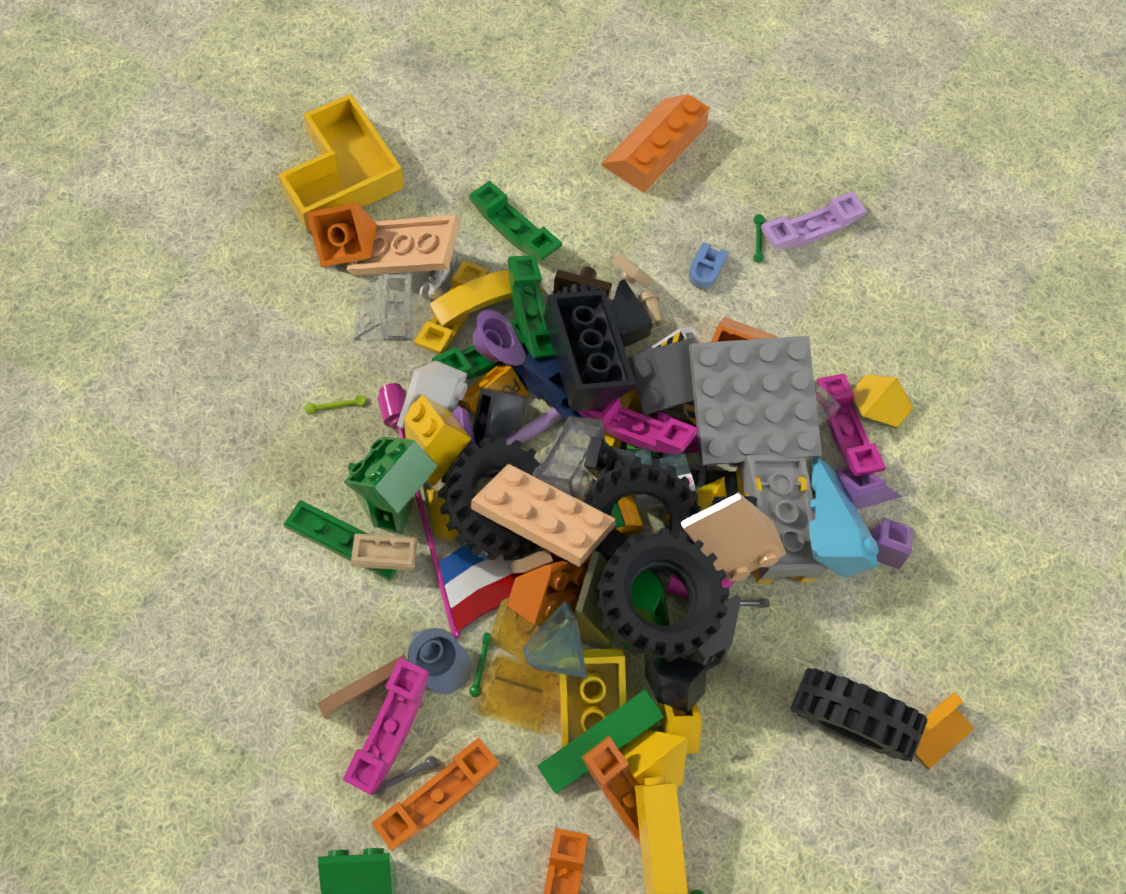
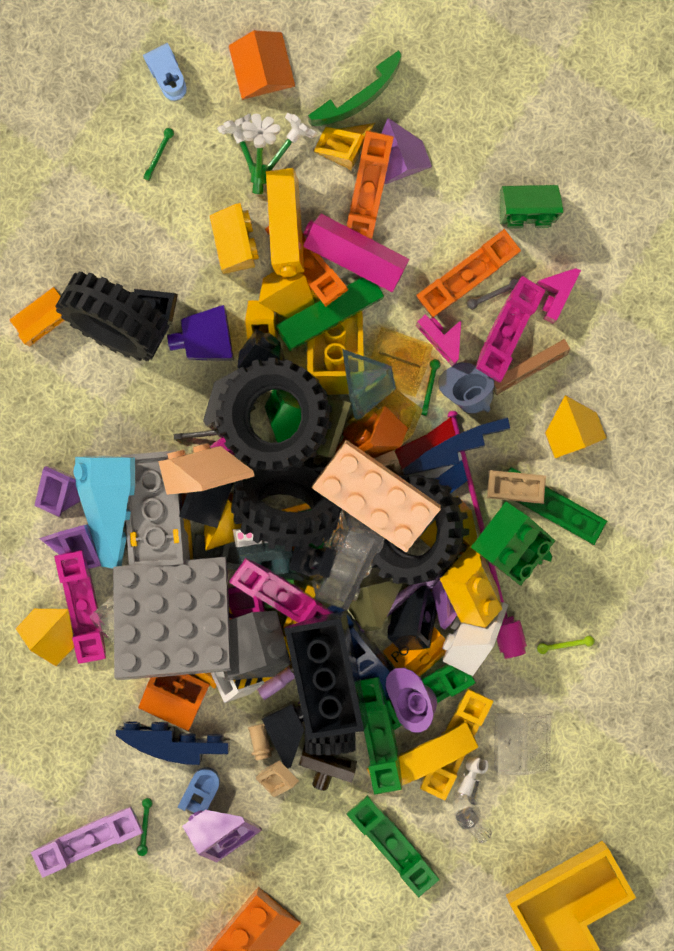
camera: 175 degrees left, 25 degrees up
(314, 617) = (573, 428): none -> yellow slope
(322, 783) = (561, 286): none -> dark pink slope
(342, 233) = (566, 826): orange slope -> none
(410, 246) = (505, 811): light nougat plate -> none
(460, 710) = (447, 344): none -> dark pink slope
(462, 586) = (447, 452): none -> dark blue slope
(539, 428) = (374, 604): none -> olive slope
(573, 815) = (355, 252): none -> dark pink brick
(689, 228) = (218, 833): none -> slope
(721, 825) = (232, 239): none -> yellow slope
(745, 710) = (204, 336): none -> dark purple torso
(749, 303) = (161, 743): none -> dark blue slope
(808, 743) = (162, 301): none -> black slope

